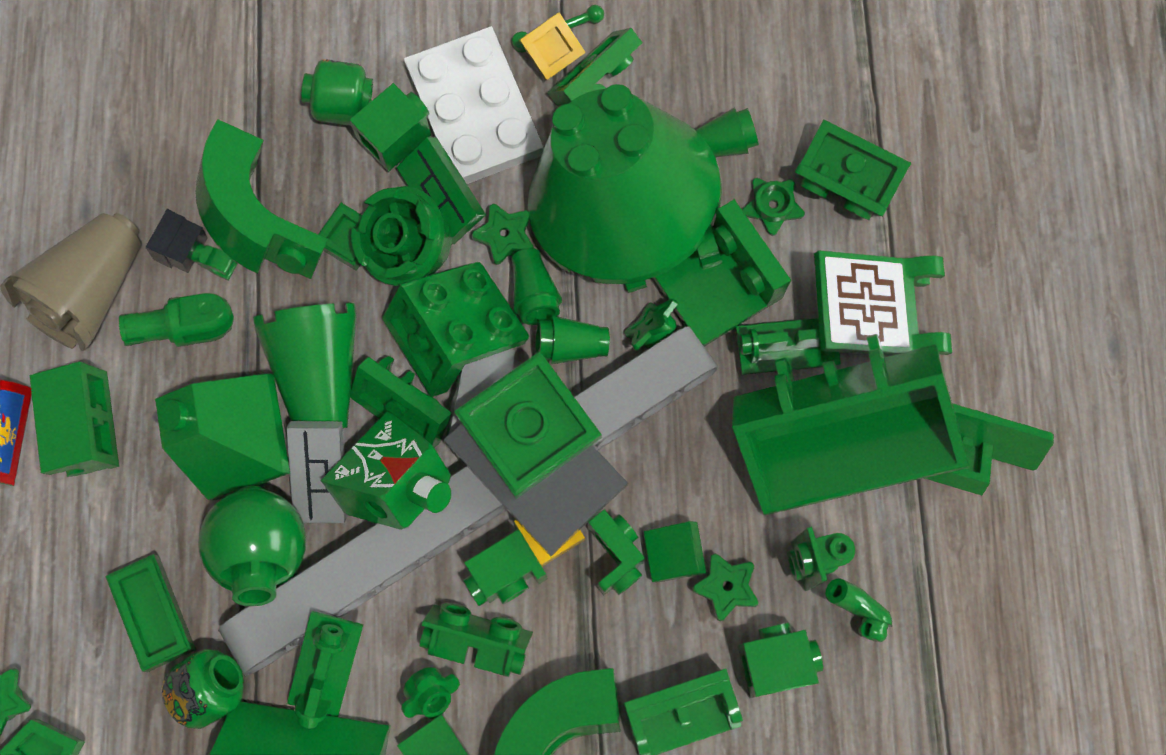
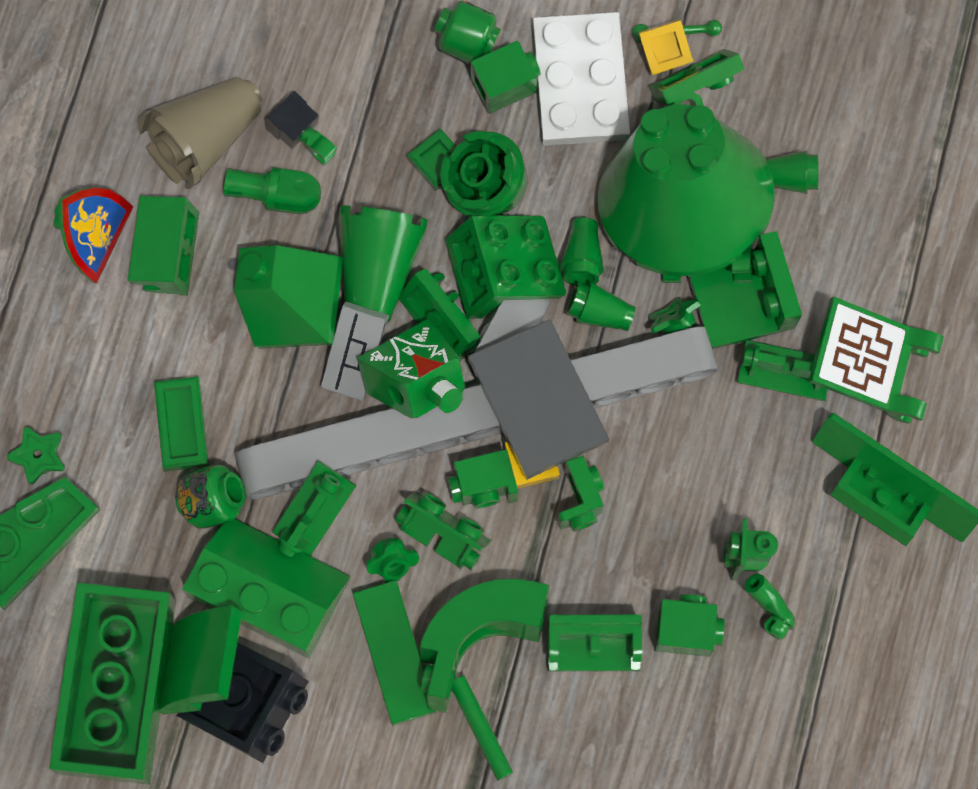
camera: 15 degrees right, 0 degrees up
(237, 217) = (350, 114): green arch -> none
(252, 544) = (285, 392): green brick -> none
(435, 174) = (528, 128): green tile -> none
(504, 246) = (572, 186): green plate -> none
(528, 424) = (542, 365): green tile -> none
(674, 552) = (631, 511): green tile -> none
(722, 600) = (675, 562): green plate -> none
(775, 191) = (815, 233): green plate -> none
(848, 429) = (808, 453): green piece -> none
(851, 169) = (891, 236): green bracket -> none

